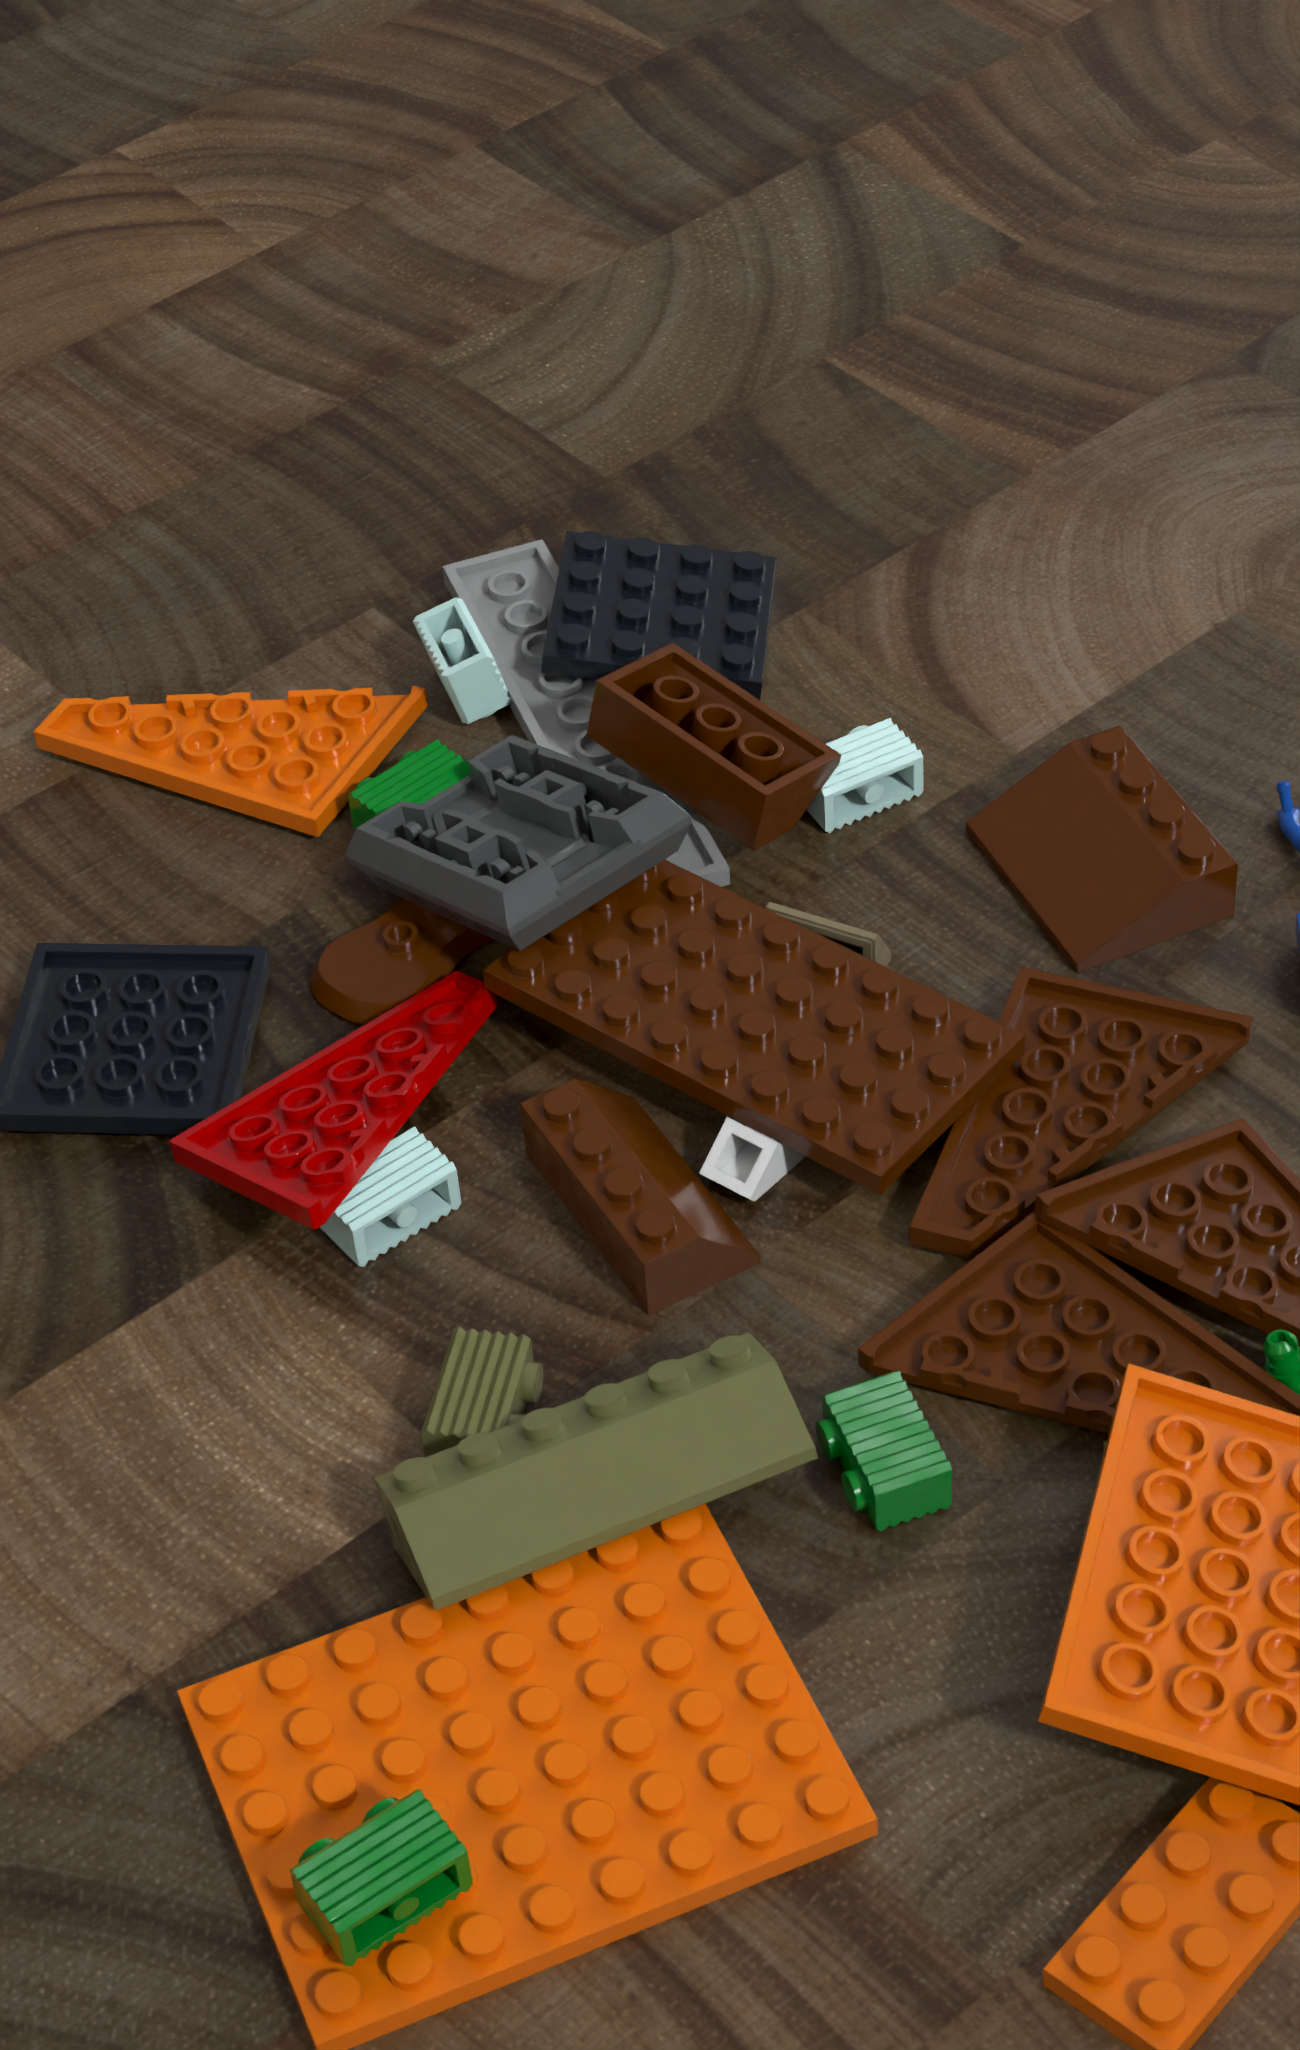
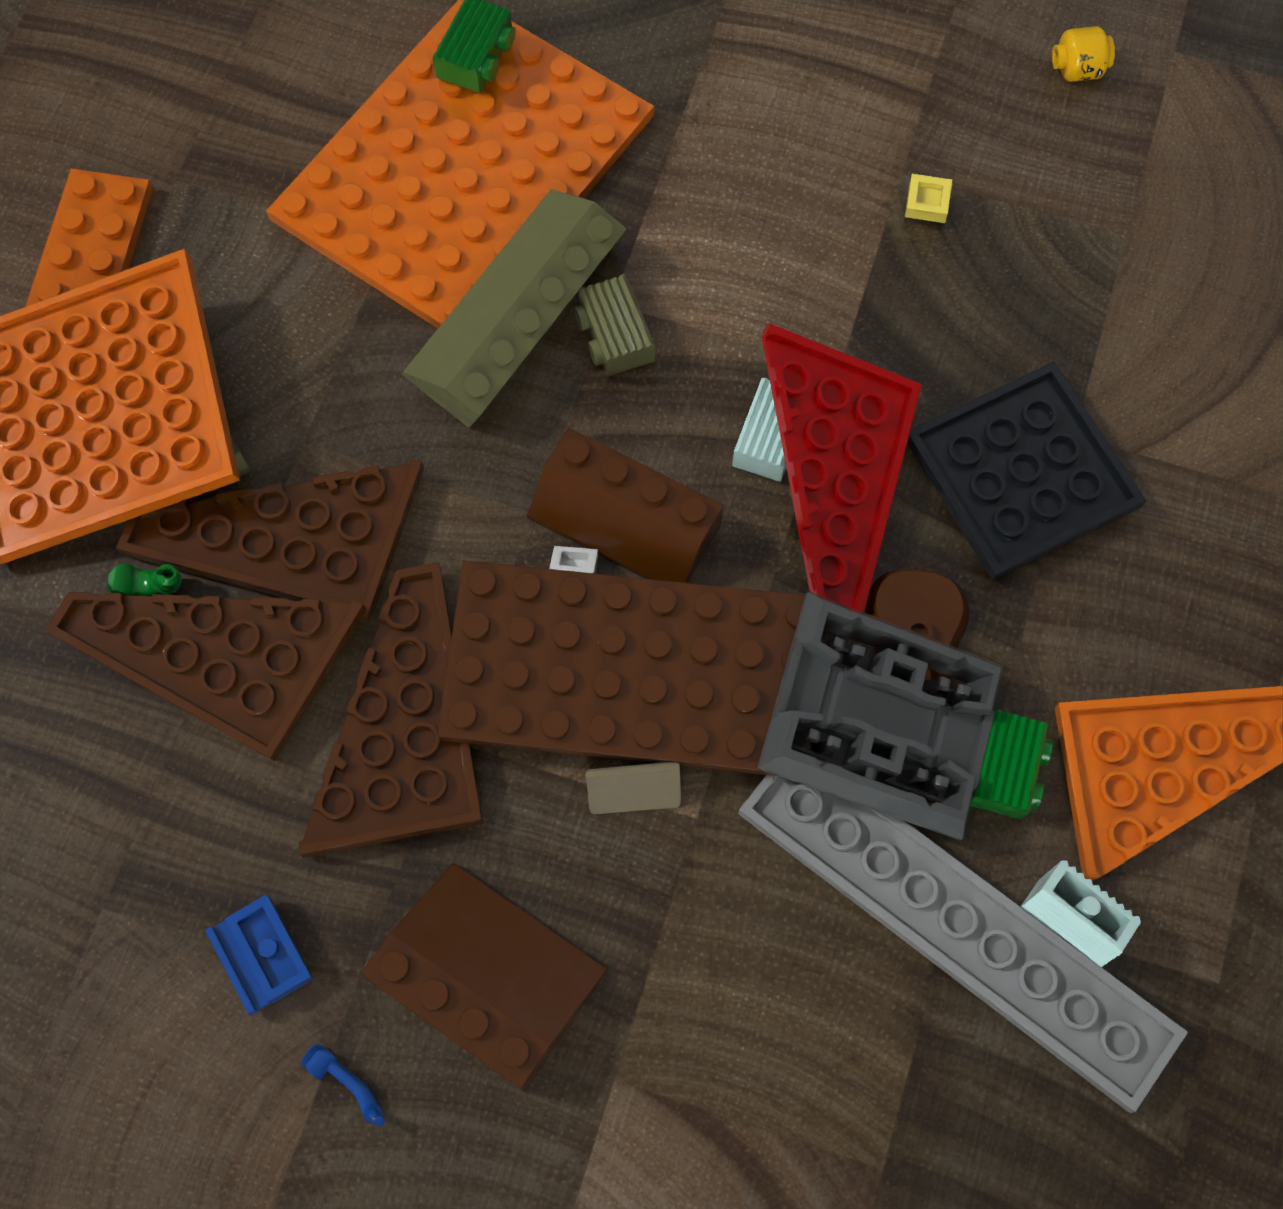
camera: 145 degrees right, 25 degrees up
(638, 595) = (974, 1068): black plate -> none
(710, 744) = (813, 895): reddish brown slope -> none
(873, 773) = (709, 963): light aqua brick -> none
(886, 1451) = (372, 408): green brick -> none

